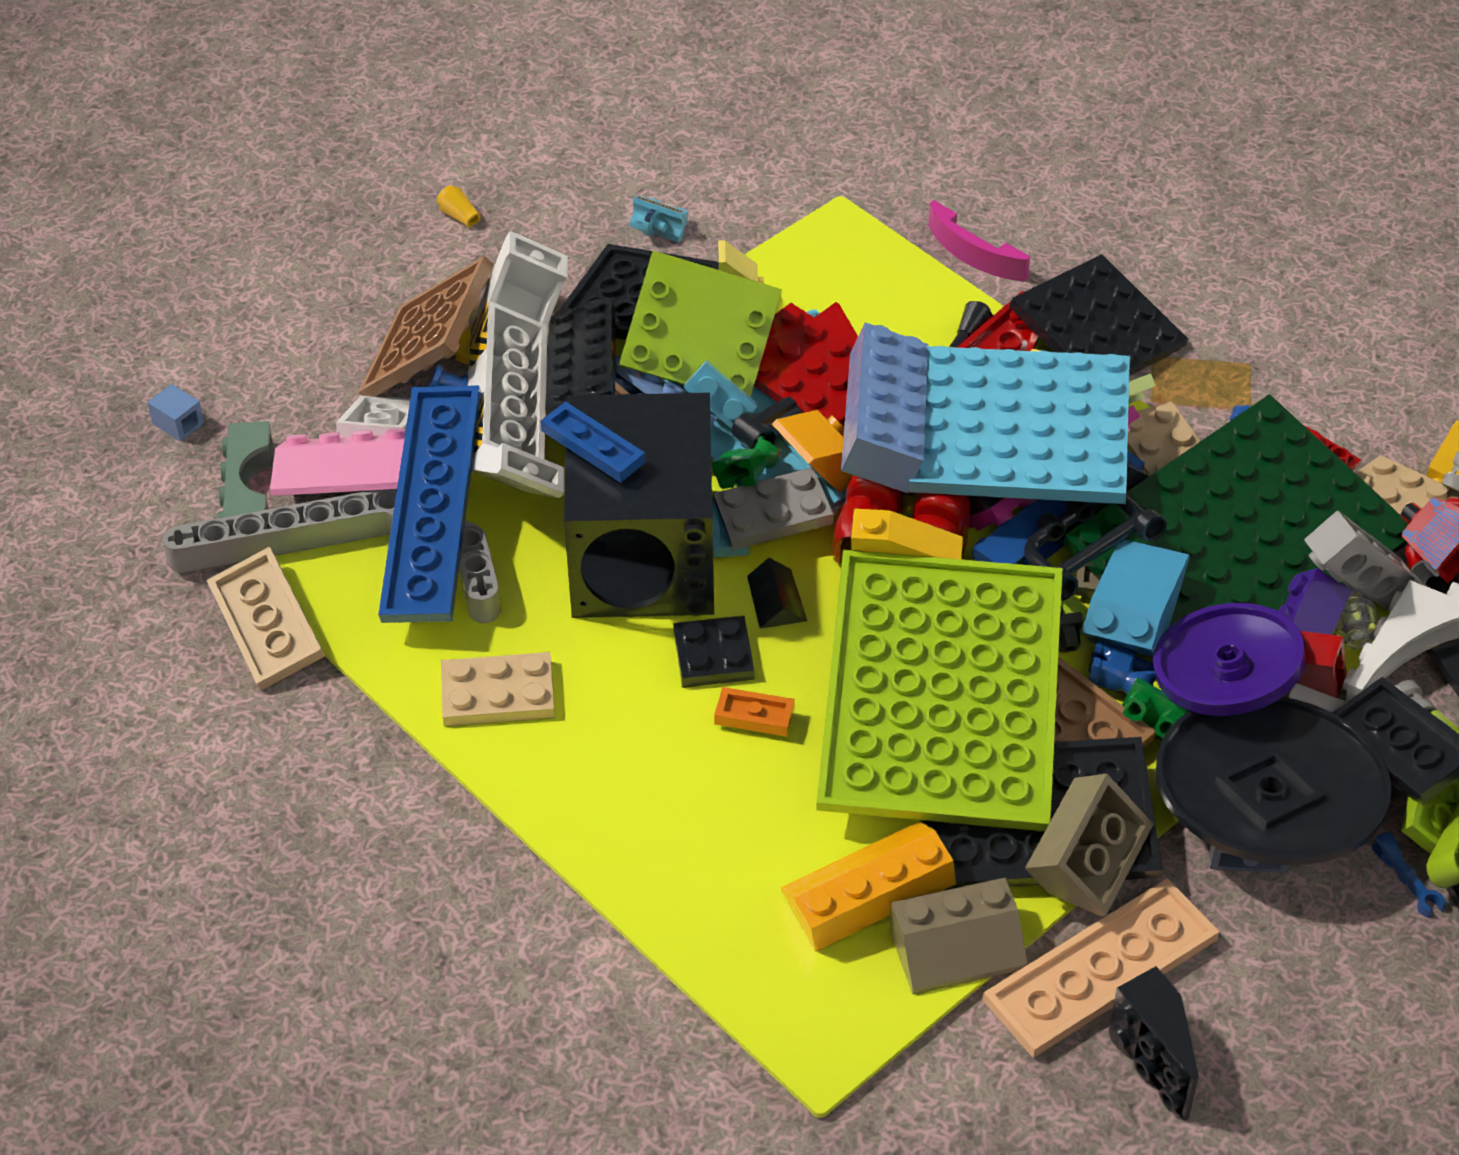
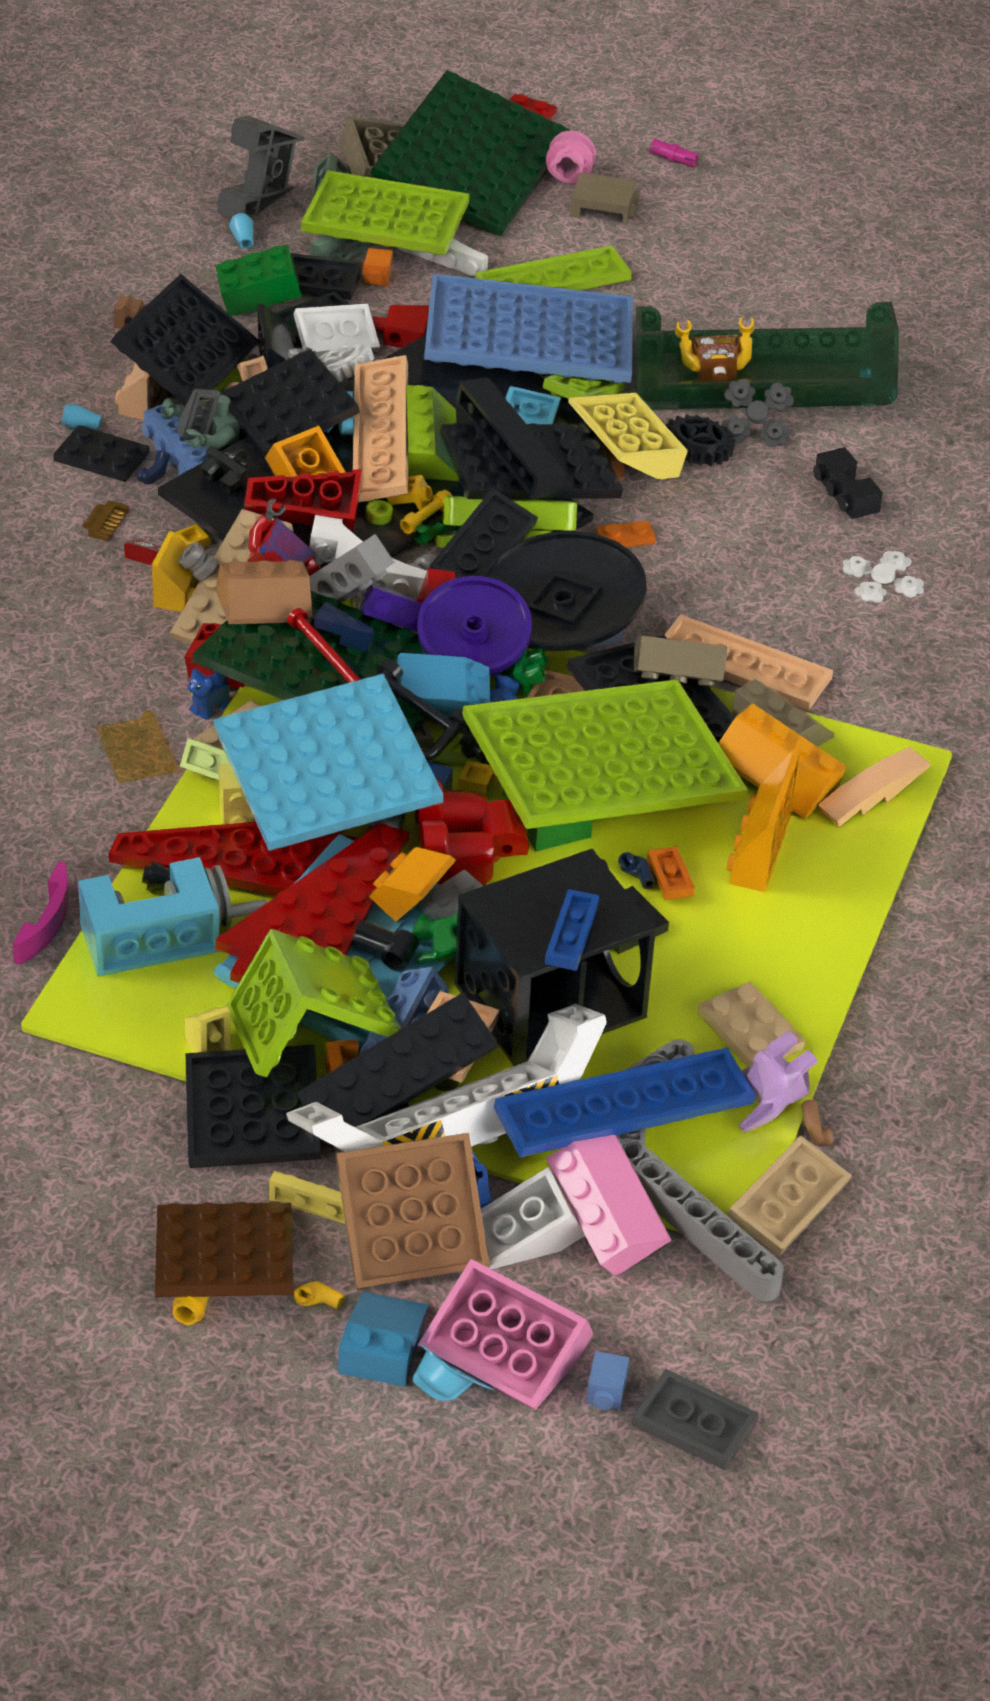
camera: 120 degrees left, 5 degrees down
(95, 456) = (695, 1419): none -> dark grey plate
(246, 452) = (619, 1303): sand green arch -> none
(259, 317) = (442, 1379): none -> medium azure piece
(272, 369) = (506, 1335): none -> bright pink slope
(335, 297) = (381, 1338): none -> dark azure slope
(337, 684) = (811, 1118): none -> medium nougat arm
(396, 651) = (776, 1080): none -> lavender piece
(414, 281) = (316, 1293): none -> yellow arm
(479, 214) = (224, 1249): none -> reddish brown plate
(658, 218) = (132, 1139): medium azure hips -> none
(726, 398) = (382, 969): medium azure plate -> none
(754, 808) = (765, 826): none -> light orange slope
(785, 971) = (872, 785): none -> light nougat slope
(791, 688) = (637, 867): none -> dark blue arm
(885, 407) = (362, 835): medium blue brick -> none
(896, 534) = (497, 797): yellow slope -> none
(906, 274) = (161, 927): none -> medium azure piece
(1098, 313) = (117, 803): black plate -> none
(1154, 1031) = (789, 610): black slope -> none
(1276, 542) = (352, 631): none -> dark blue slope
(1296, 499) = (298, 619): none -> red bar
(1349, 475) = (263, 591): none -> medium nougat slope
(1427, 961) = (629, 534): none -> orange plate

